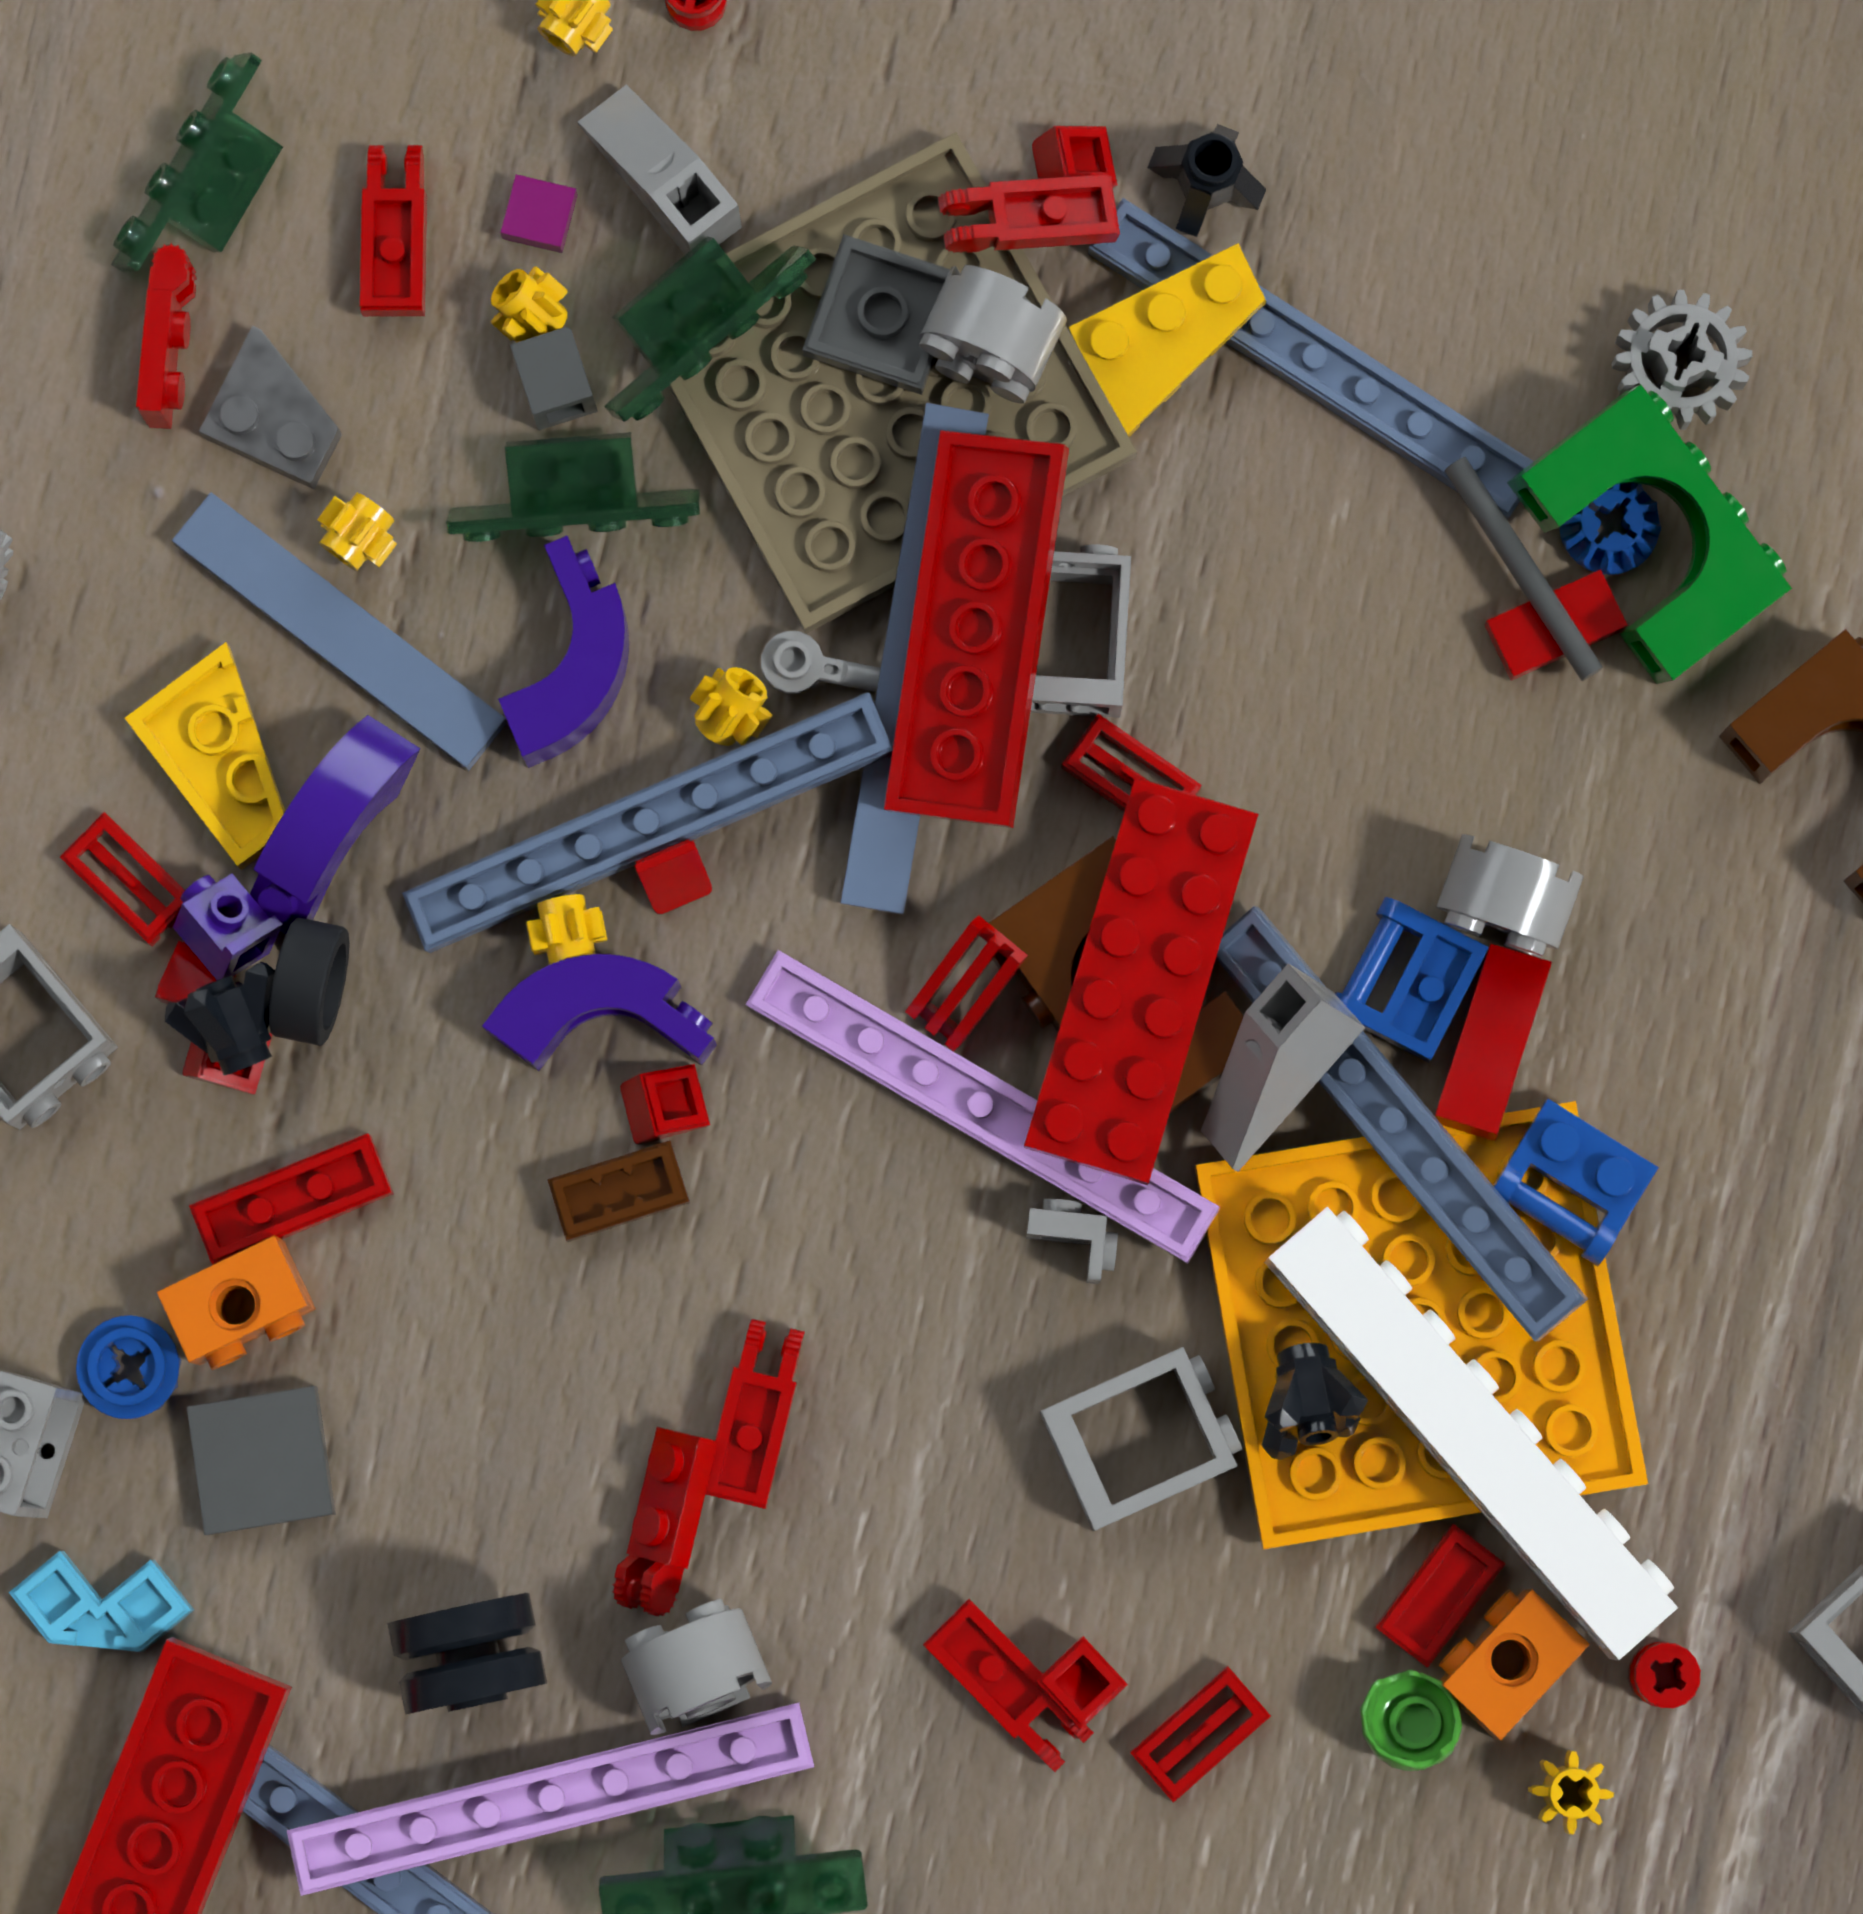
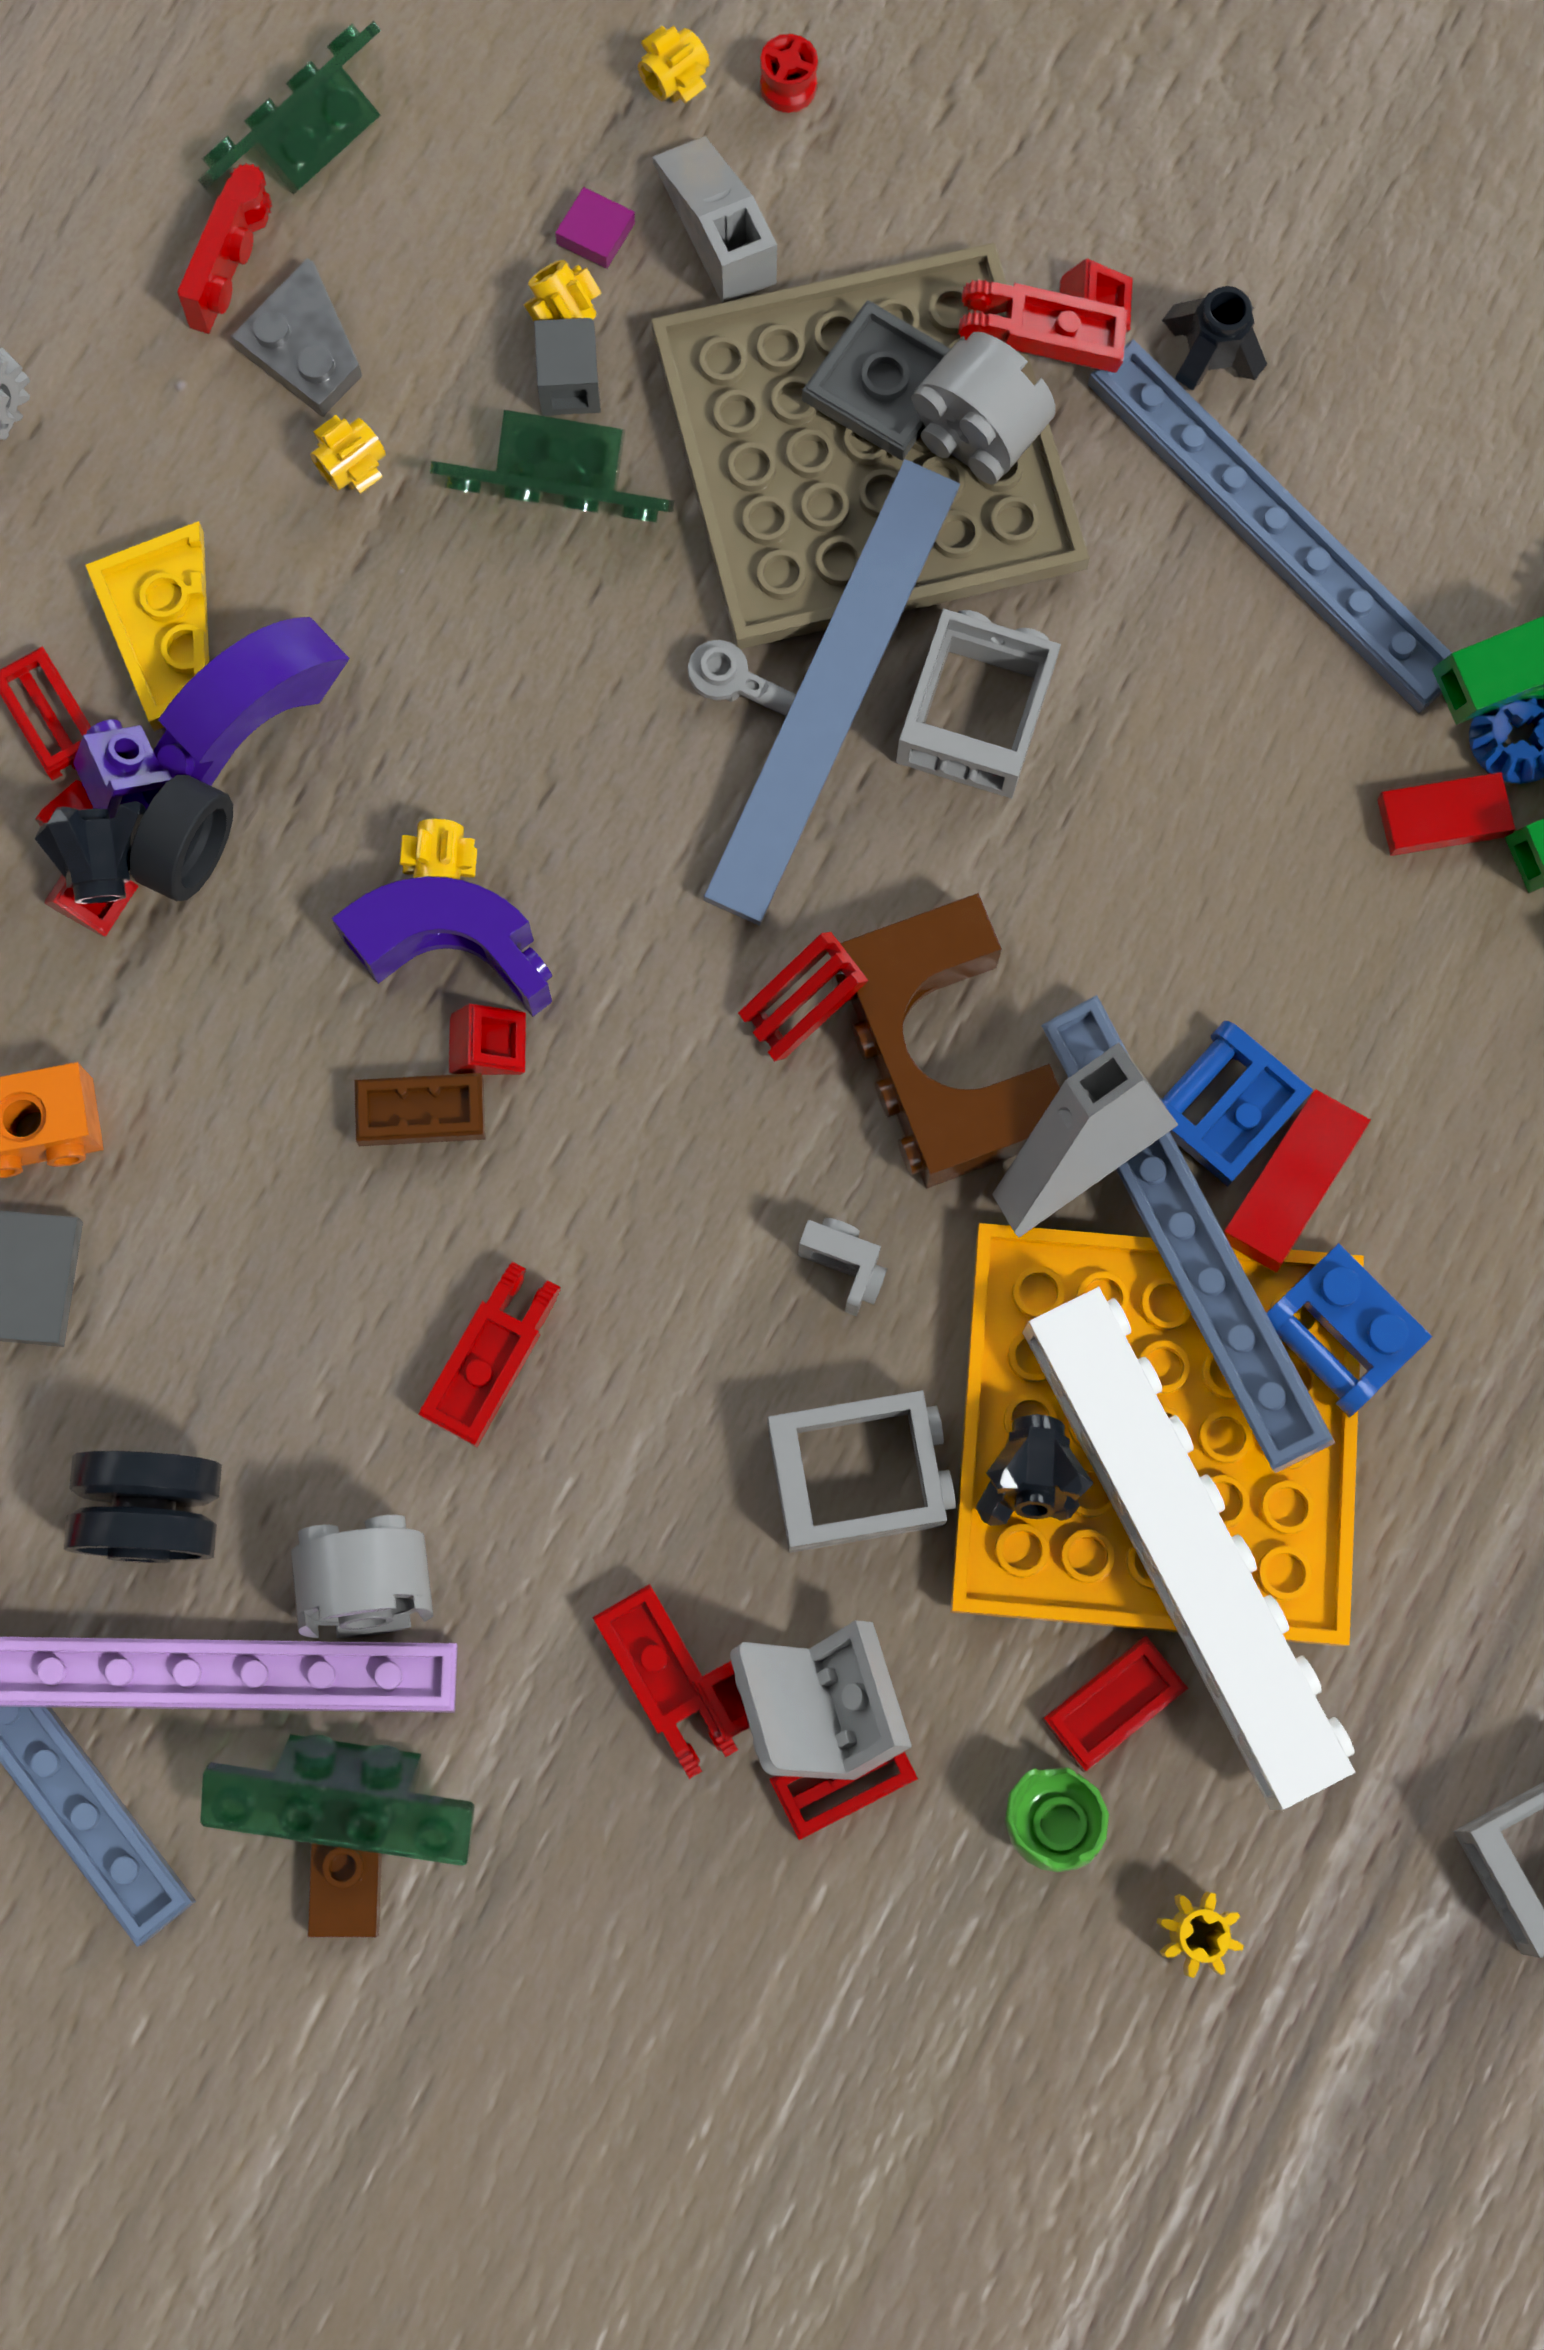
camera: 10 degrees right, 5 degrees down
(292, 1198) = (114, 1038): red tile -> none
(339, 631) = (309, 543): sand blue tile -> none
(393, 238) = (457, 214): red hinge -> none
(583, 687) = (517, 642): dark purple arch -> none
(648, 822) = (544, 777): sand blue tile -> none
(665, 1521) = (374, 1433): red hinge -> none
(674, 877) = (553, 833): red slope -> none
(691, 312) = (707, 327): clear green bracket -> none
(730, 706) = (649, 692): yellow gear -> none
(968, 1100) = (791, 1120): lavender tile -> none
(976, 628) = (898, 669): red plate -> none
(1130, 745) = (991, 867): red tile -> none
(1141, 981) = (969, 1033): red plate -> none
(1164, 1673) = (822, 1706): none -> light grey bracket
(1165, 332) = (1143, 460): yellow wing -> none
(1508, 894) = (1346, 1042): light grey brick -> none
(1523, 568) = (1429, 752): dark grey bar -> none
(1548, 1651) = (1210, 1778): orange brick -> none
(1648, 1676) = (1302, 1839): red wheel -> none

